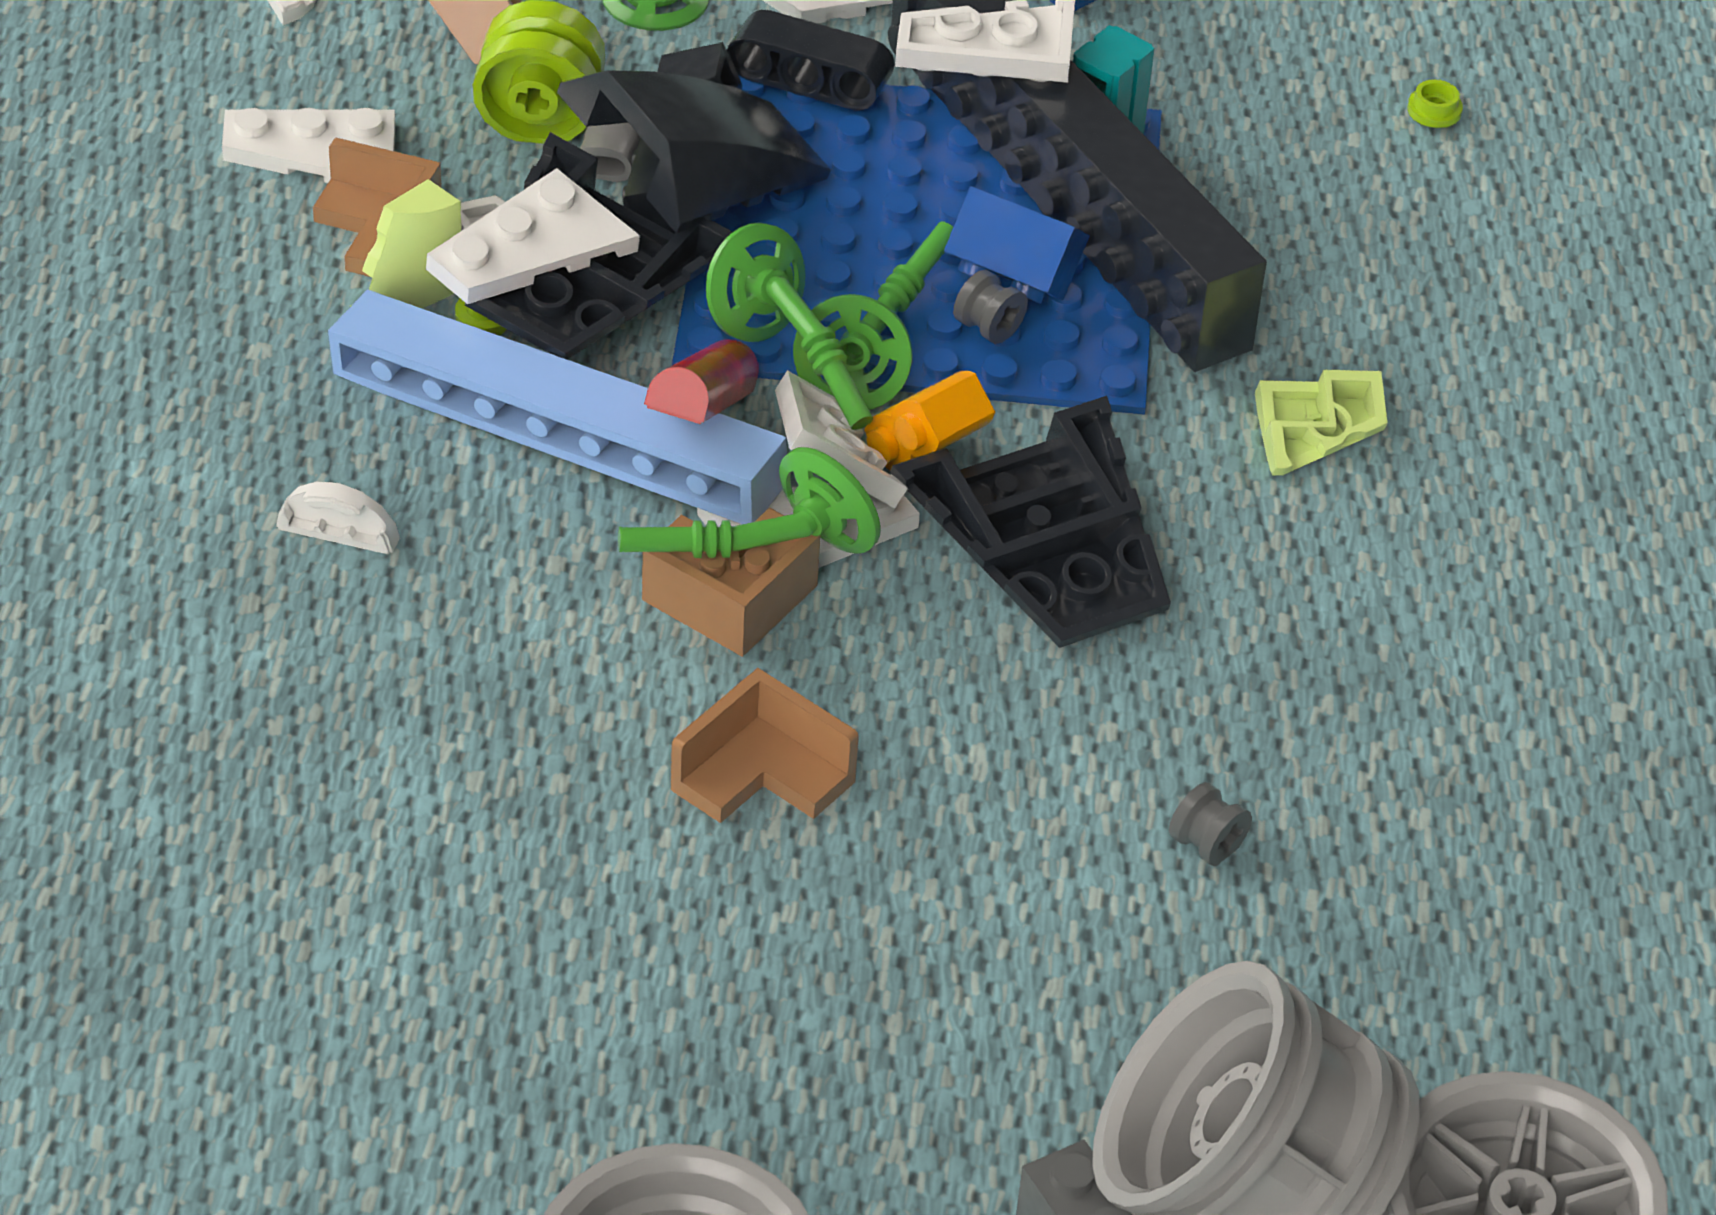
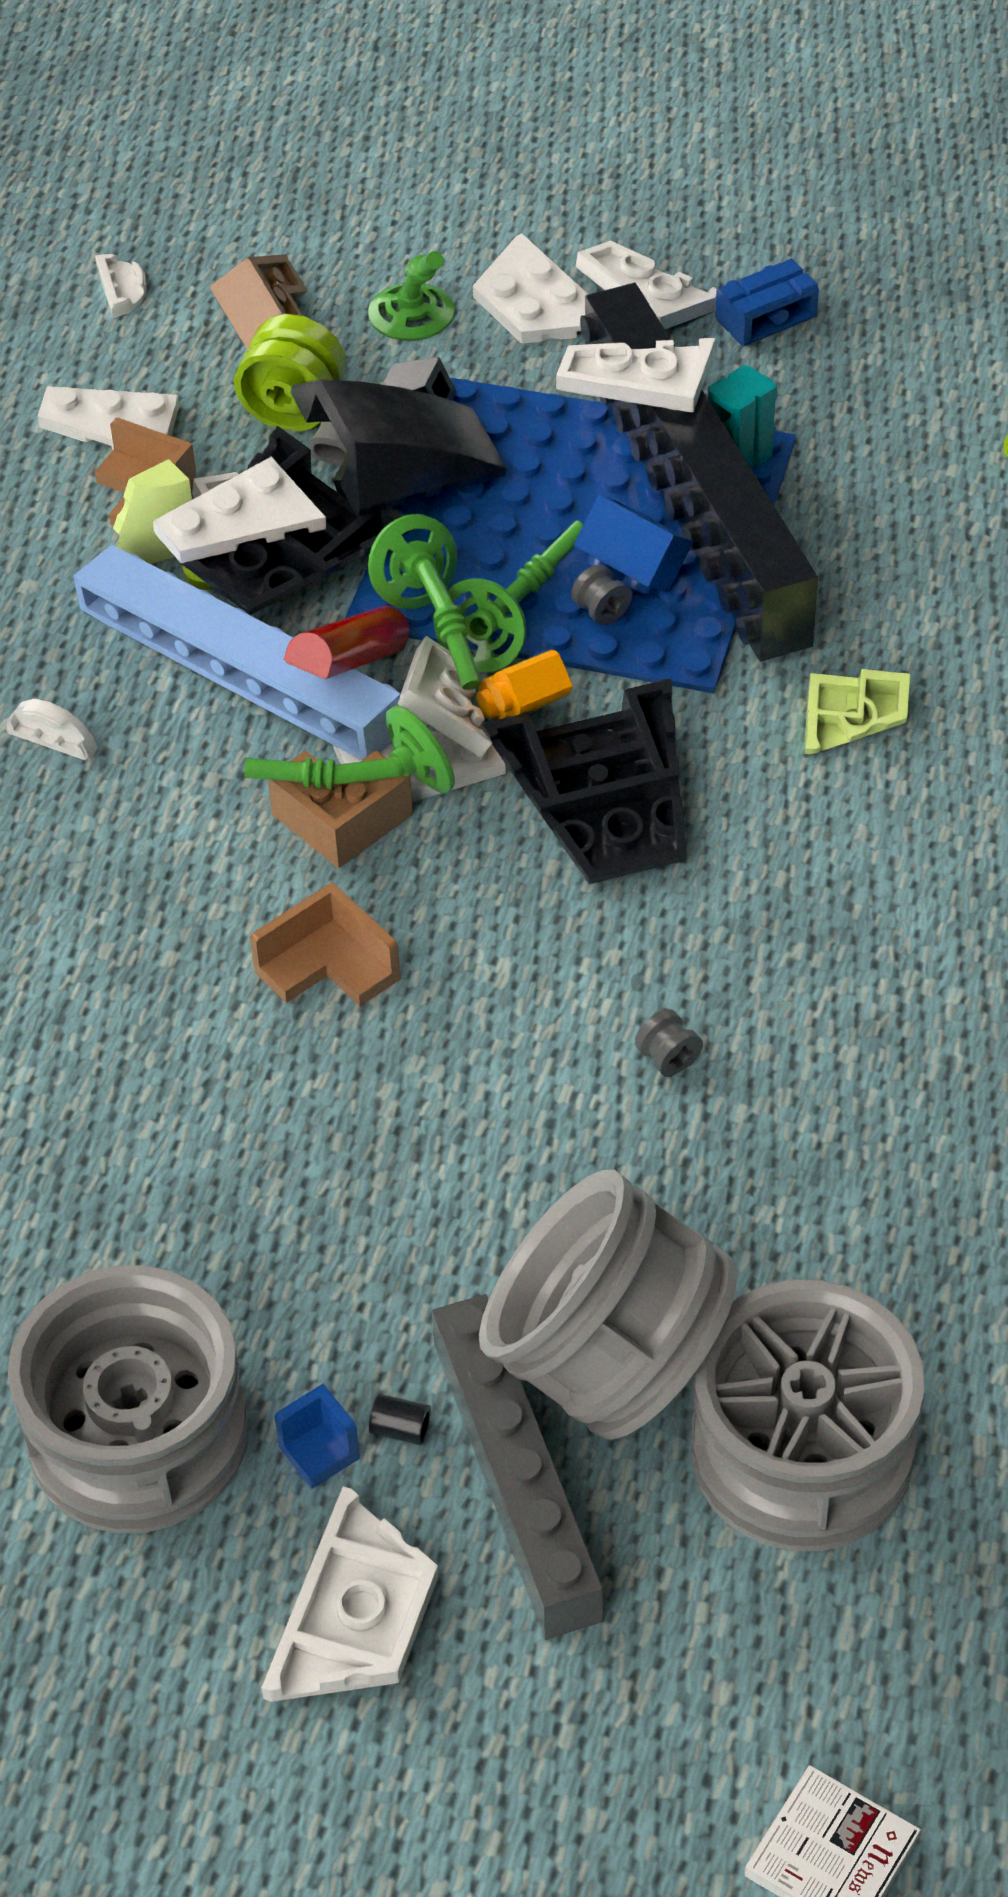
camera: 15 degrees right, 5 degrees up
(811, 59) = (508, 374): black beam -> none

